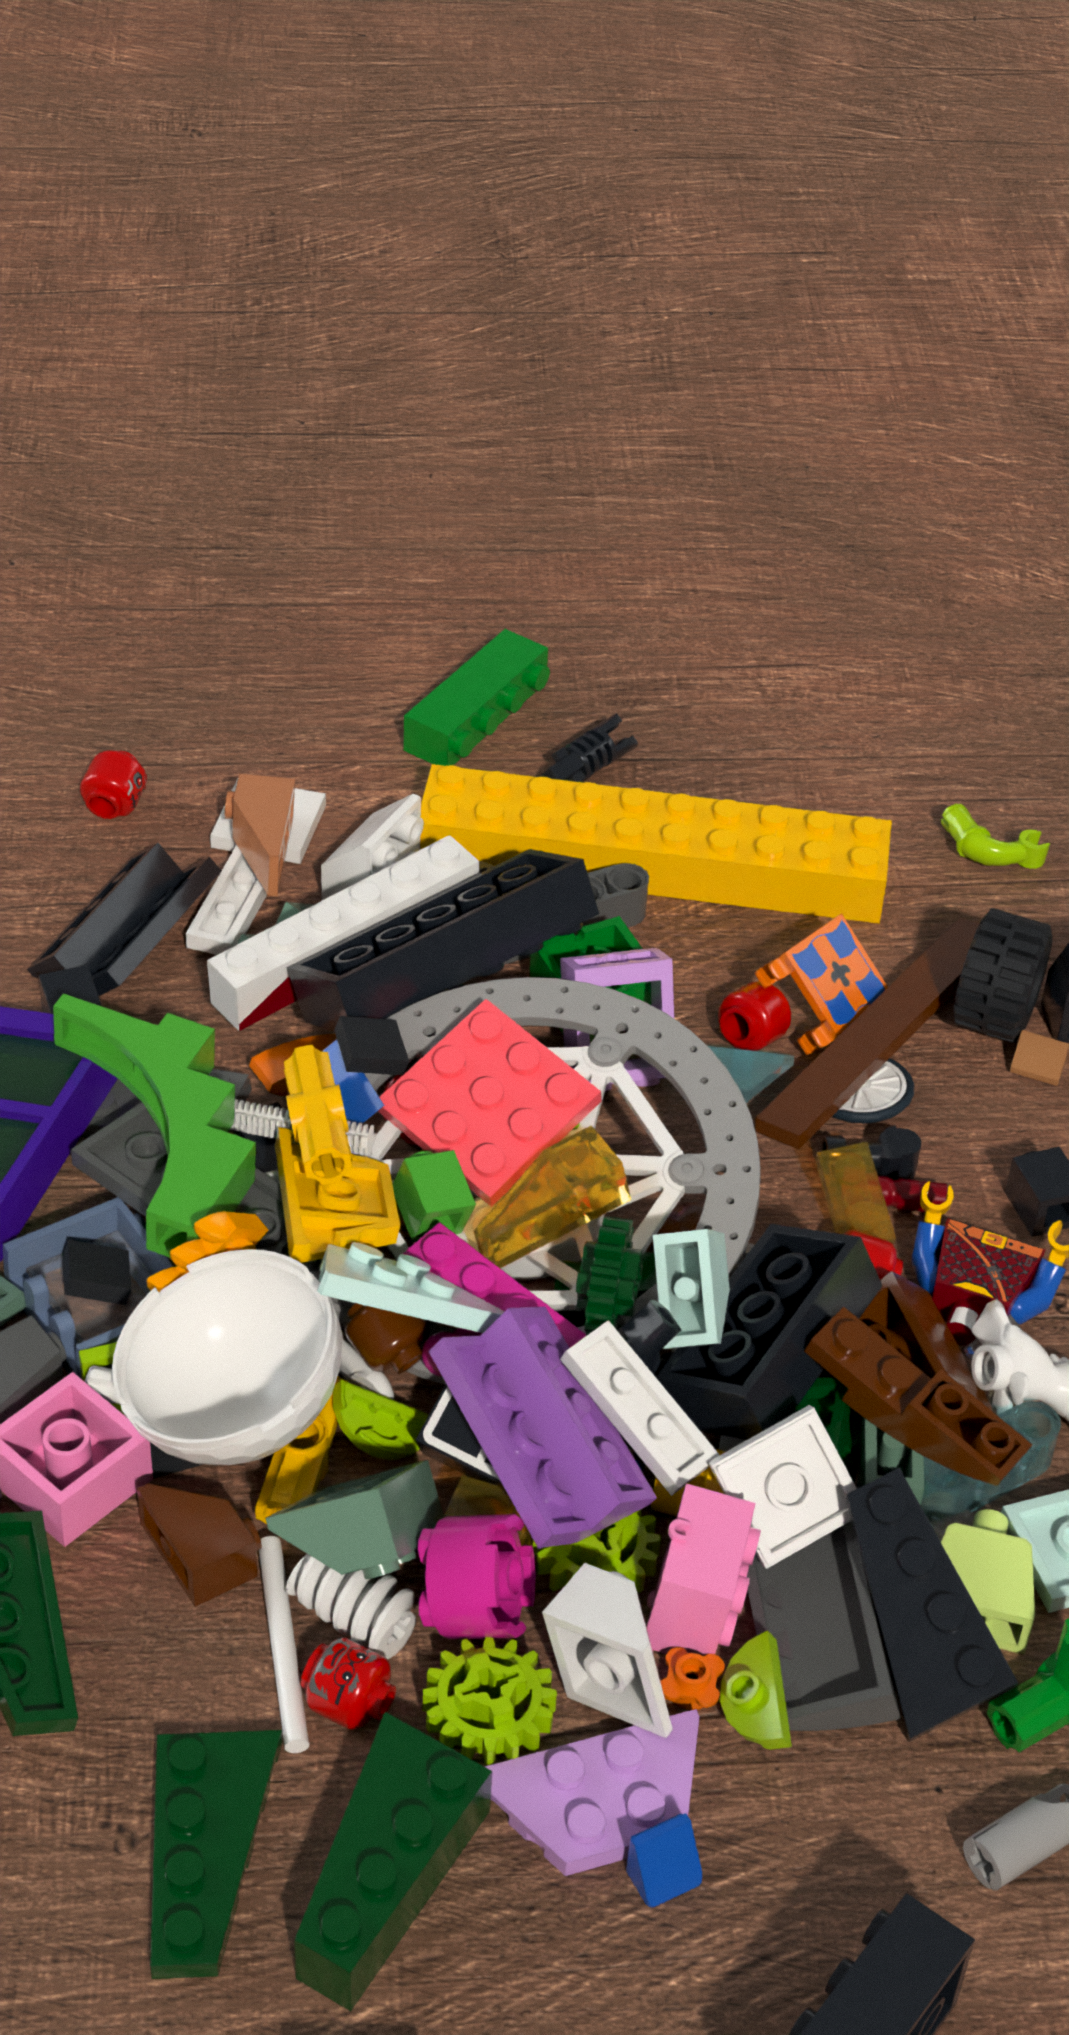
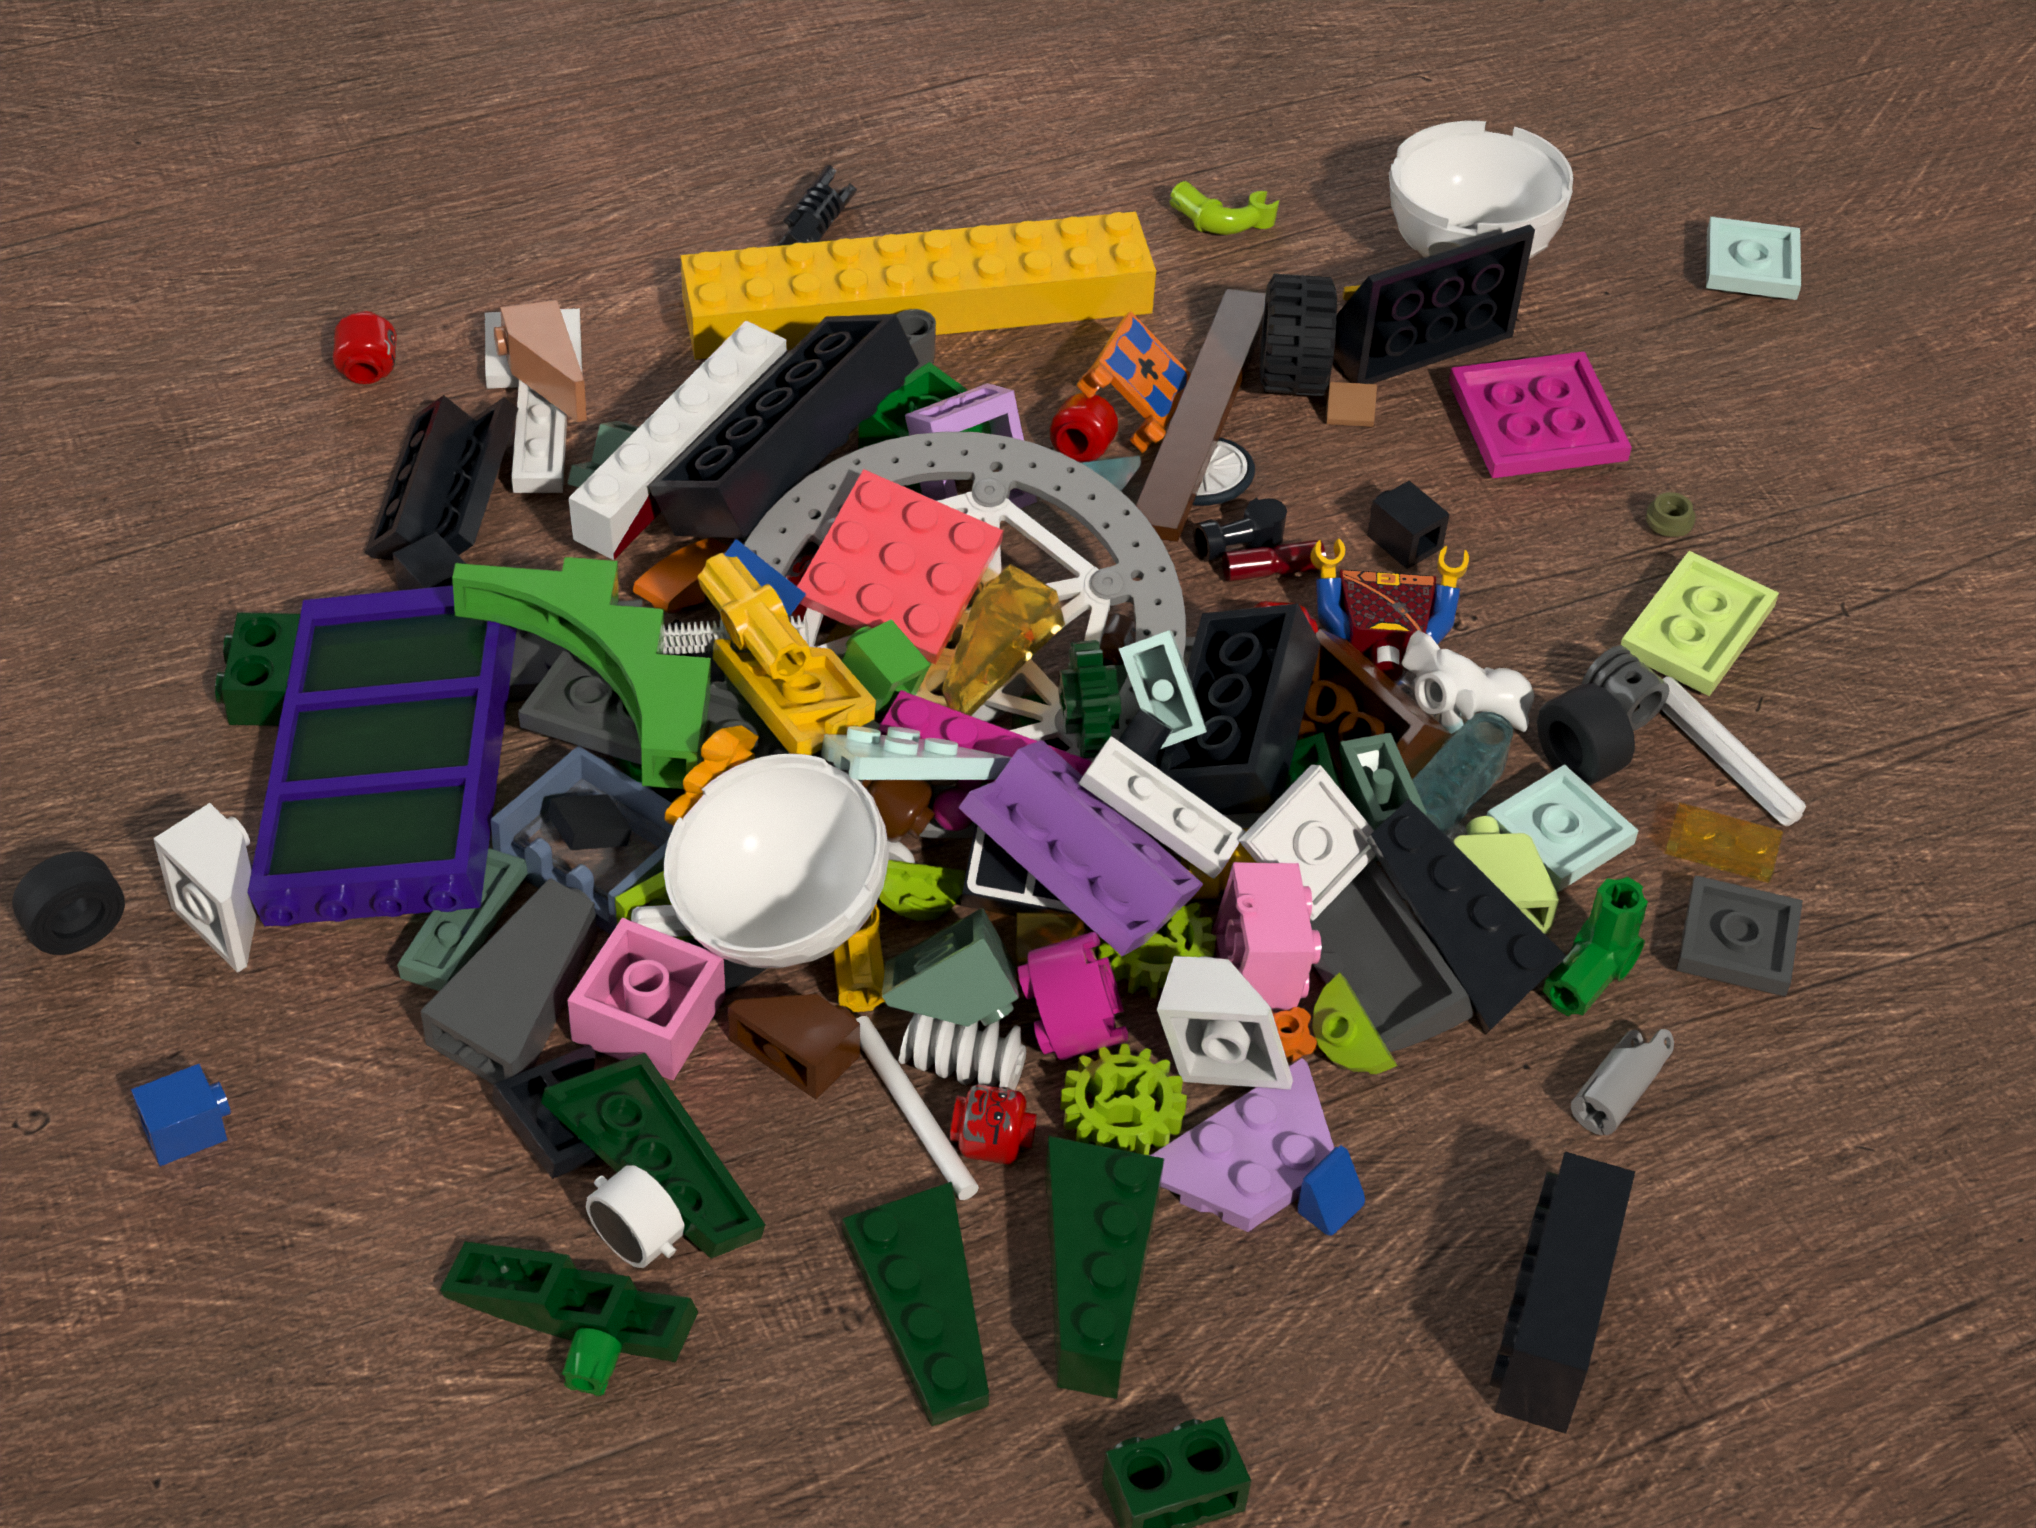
camera: 20 degrees left, 5 degrees up
(371, 1045) = (770, 540): black piece -> none
(374, 845) = (662, 355): white slope -> none
(476, 699) = (684, 181): green brick -> none
(854, 1191) = (1244, 567): clear yellow plate -> none
(921, 1412) = (1406, 747): reddish brown slope -> none

